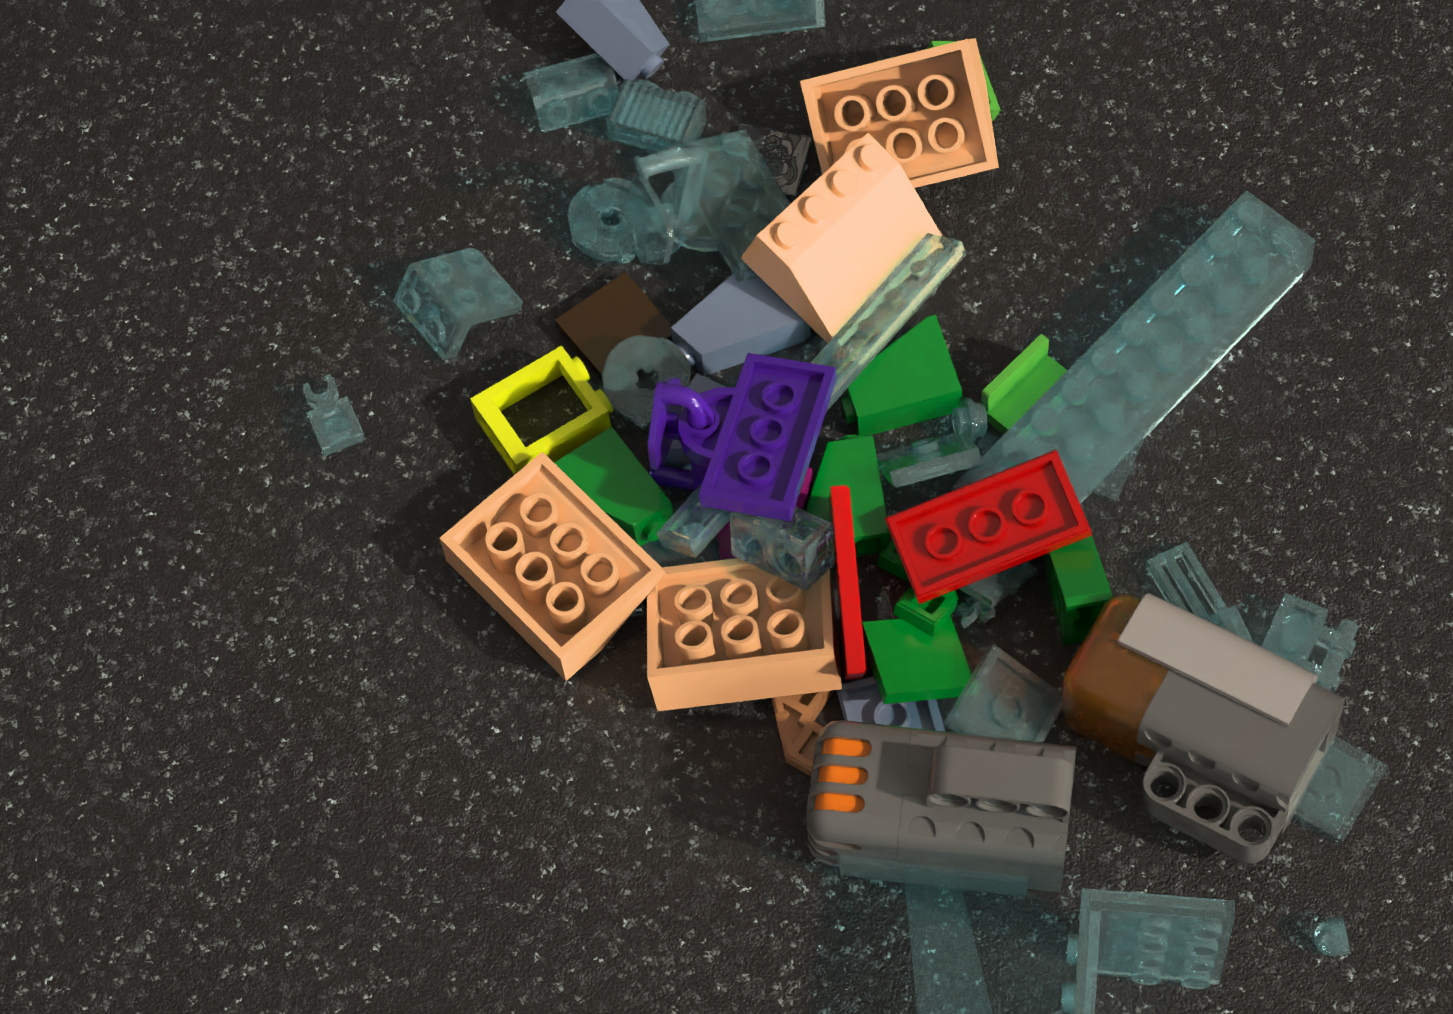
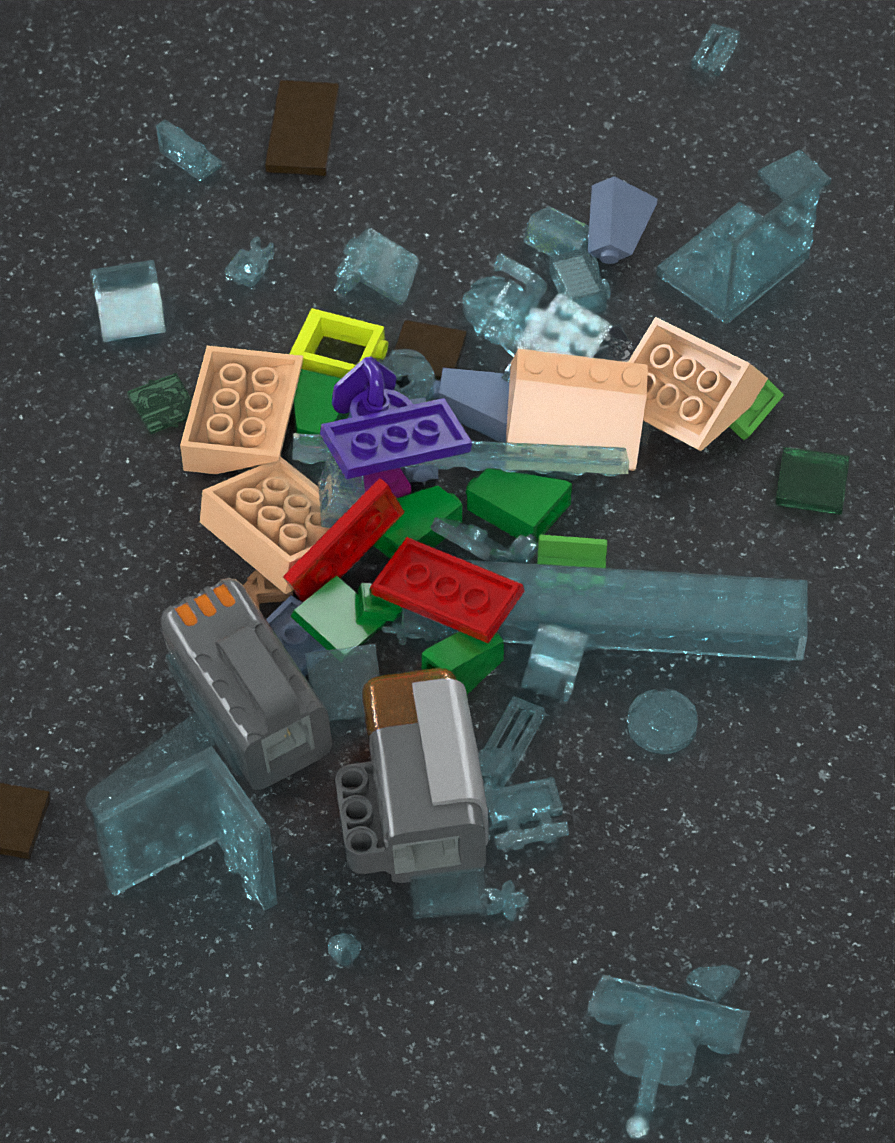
camera: 45 degrees right, 10 degrees down
(106, 372) = (185, 151): none -> clear light blue bracket
(173, 232) = (302, 128): none -> dark brown tile
(280, 577) = (128, 300): none -> clear light blue slope
(448, 639) = (161, 403): none -> clear green piece
(1101, 96) = (812, 480): none -> clear green tile
(1148, 490) = (554, 661): none -> clear light blue brick
(1285, 445) = (662, 721): none -> clear light blue tile
(1390, 742) = (506, 900): none -> clear light blue plant

